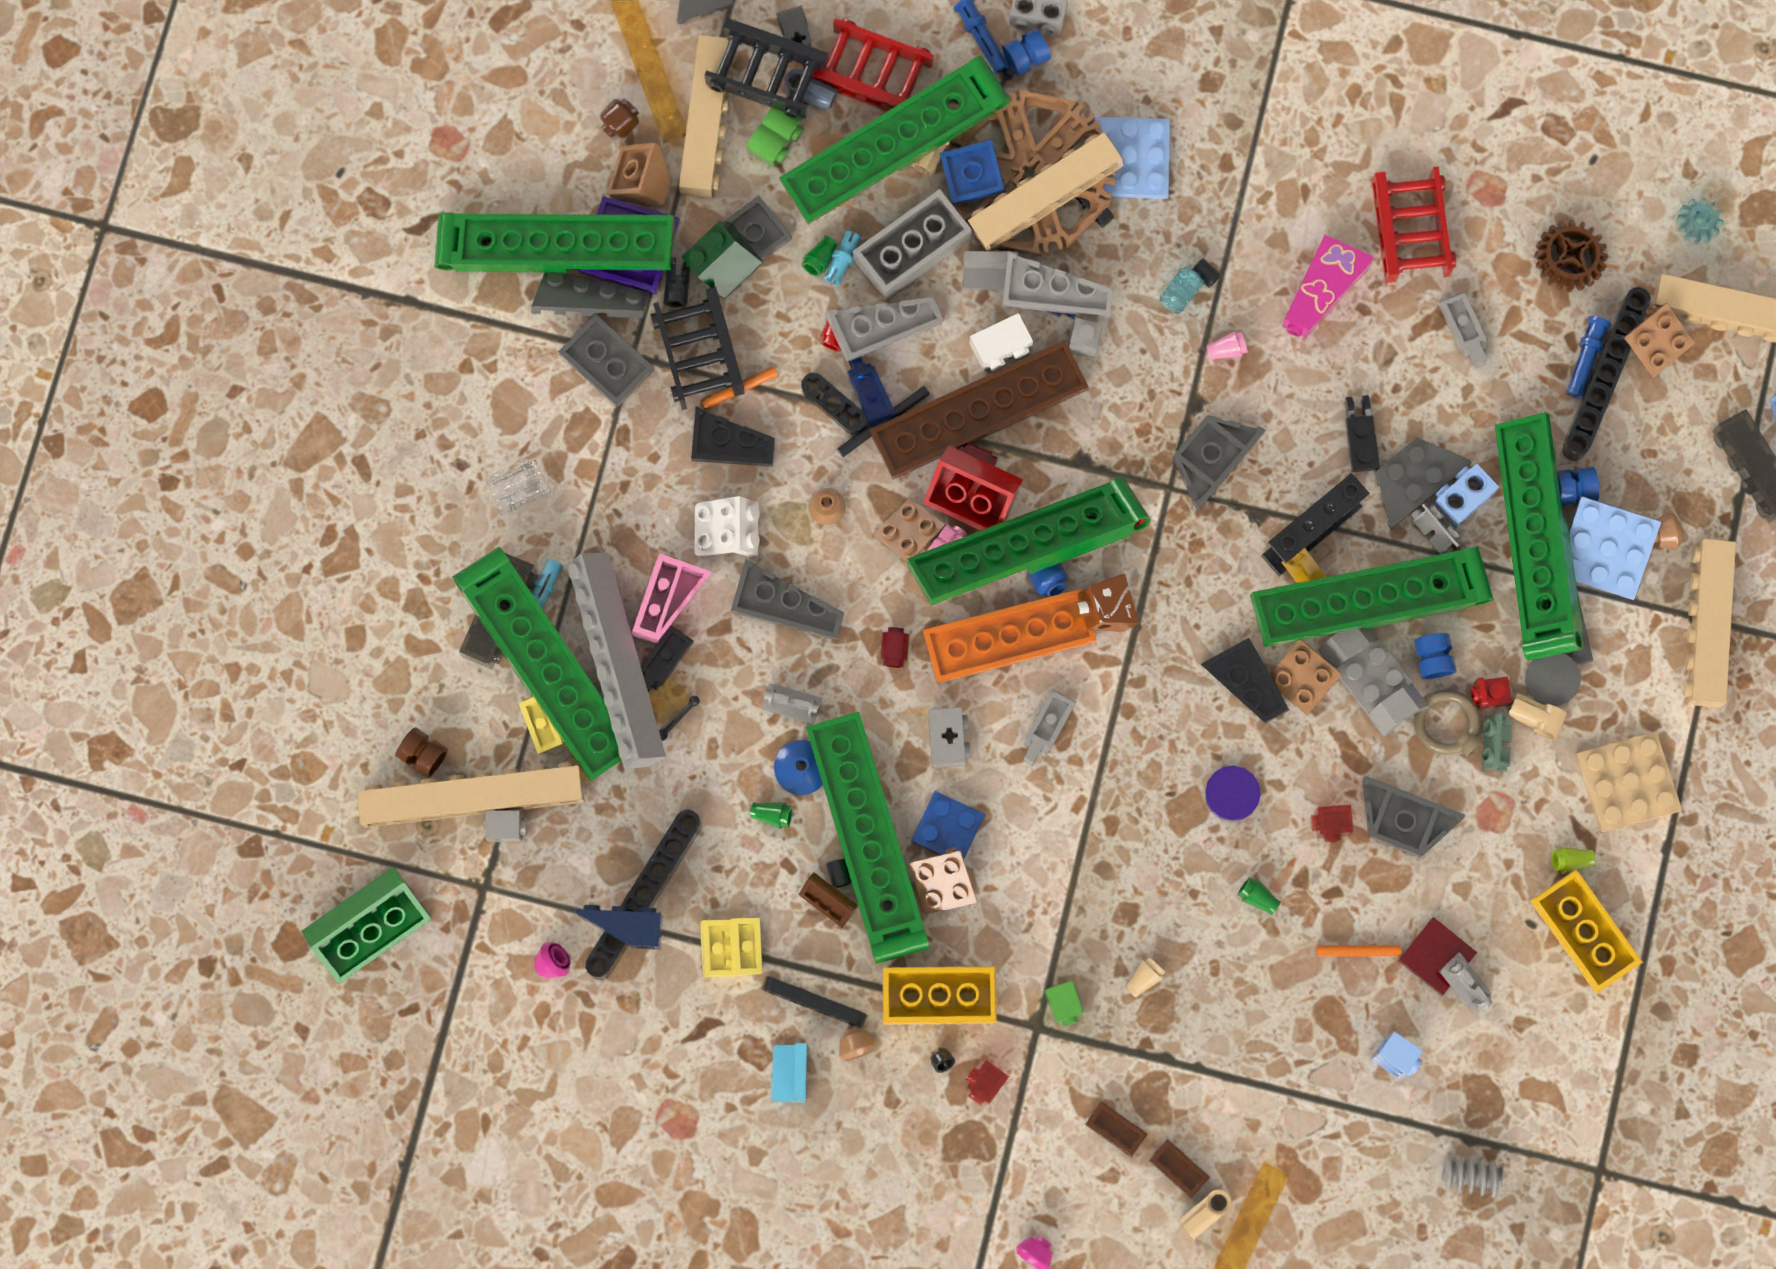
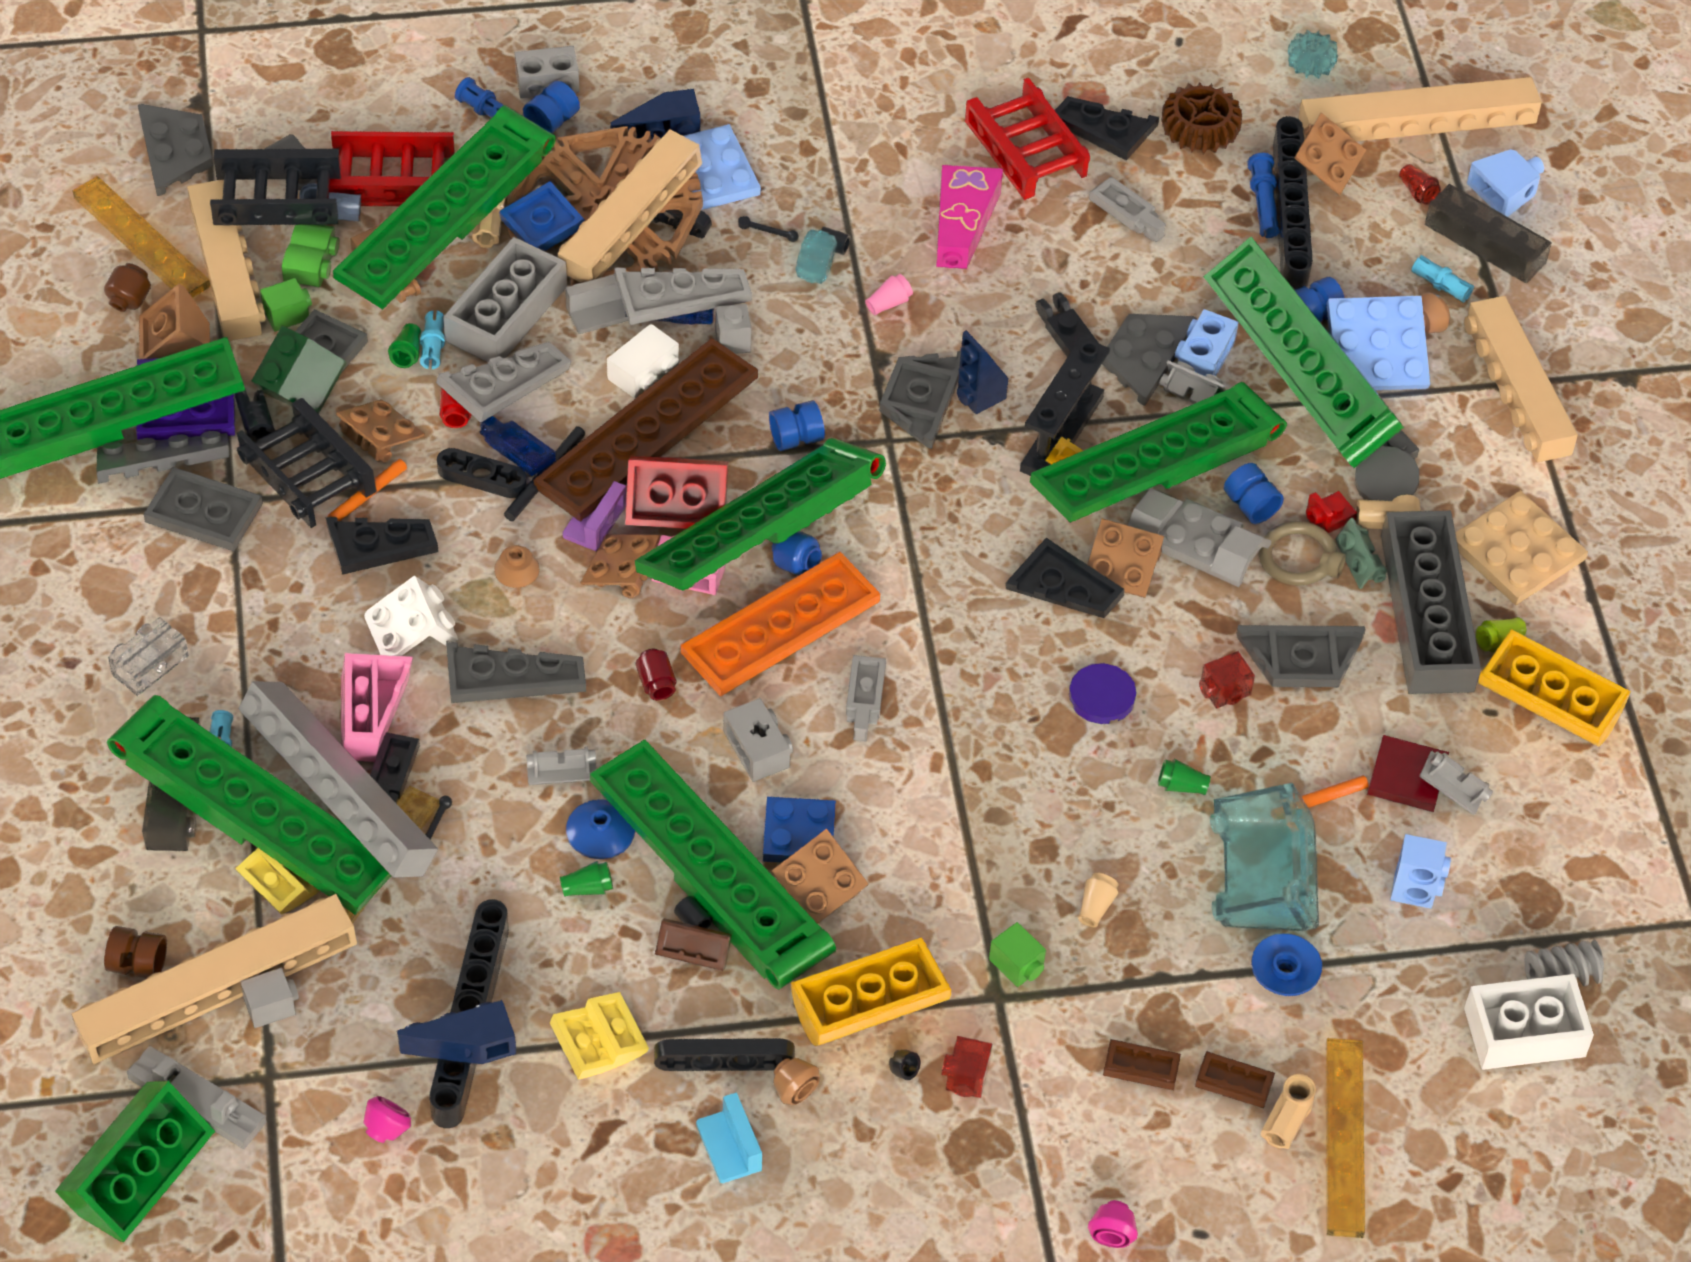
camera: 25 degrees left, 25 degrees down
(427, 886) = (218, 1107): none -> light grey hinge
(739, 180) = (285, 304): none -> bright green brick
(770, 330) = (377, 428): none -> medium nougat hinge
(903, 487) = (595, 526): none -> medium lavender panel
(1097, 453) = (799, 425): none -> blue wheel
(1106, 606) = (877, 556): dark orange torso -> none
(1117, 94) = (667, 111): none -> dark blue slope
(1142, 225) = (744, 223): none -> black hinge
(1262, 465) = (980, 378): none -> dark blue slope
(1273, 1081) = (1288, 953): none -> blue dish
(1287, 999) = (1267, 860): none -> clear light blue windscreen
(1419, 1212) = (1528, 1021): none -> white brick
(1484, 234) = (1111, 130): none -> black wing
(1527, 813) = (1430, 602): none -> dark grey brick
(1697, 496) = (1442, 278): none -> medium azure pin
(1725, 392) = (1420, 184): none -> clear red cone

